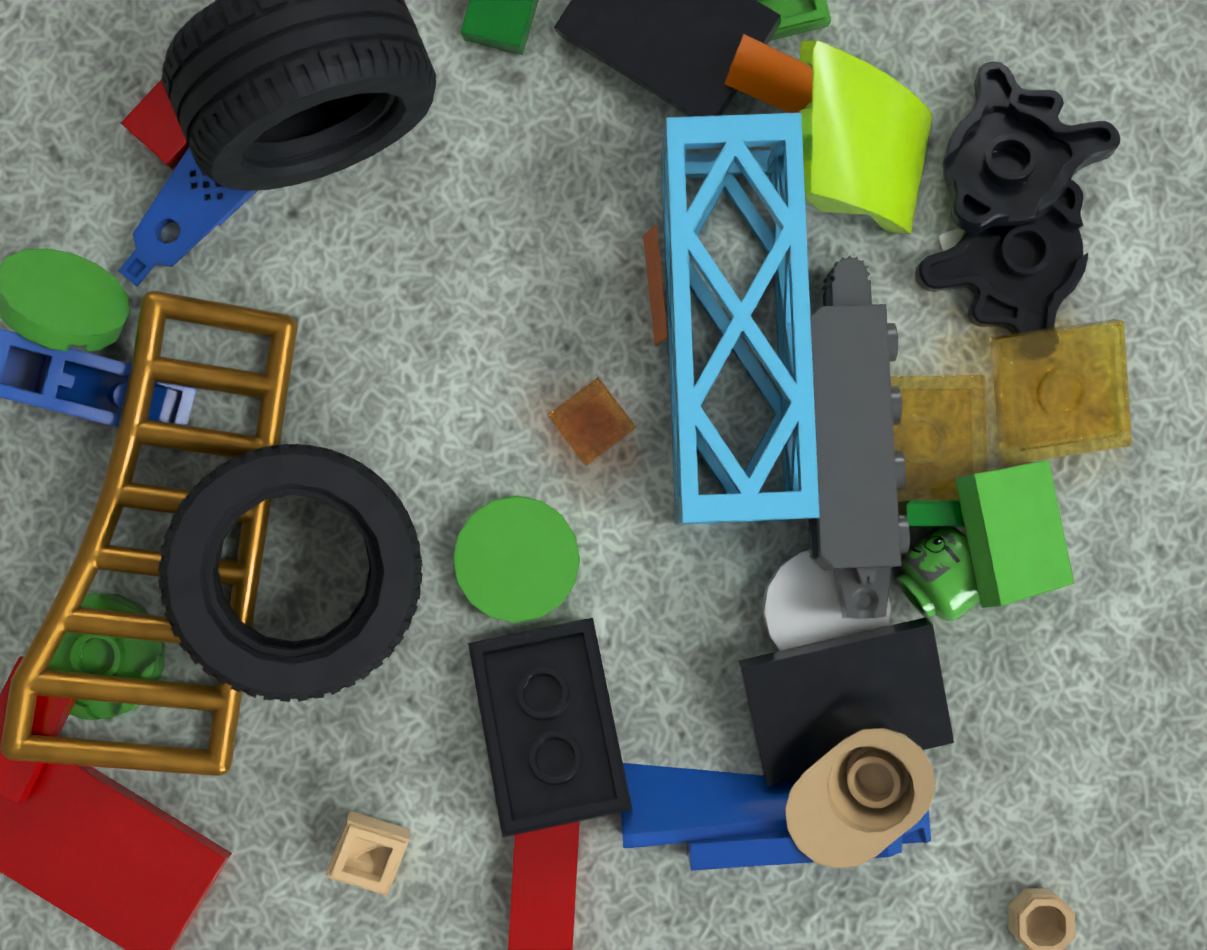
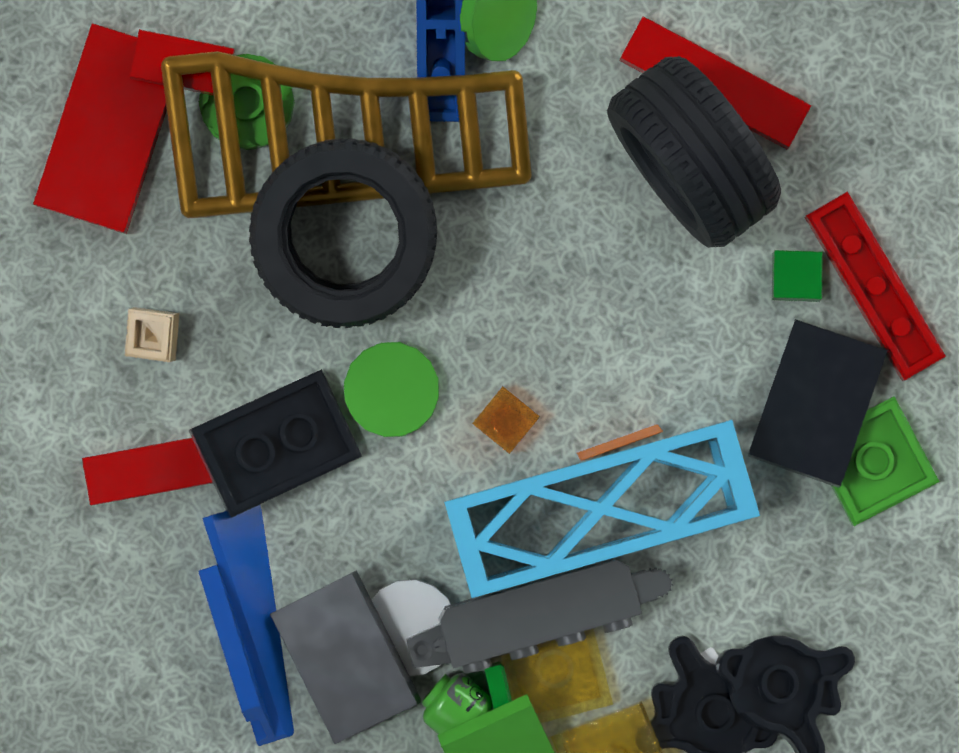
camera: 80 degrees right, 0 degrees up
(188, 208) = (592, 80): blue piece -> none
(770, 76) = (796, 496): orange sticker -> none
(860, 798) = (279, 678): tan piece -> none
(862, 139) = (759, 569): lime slope -> none

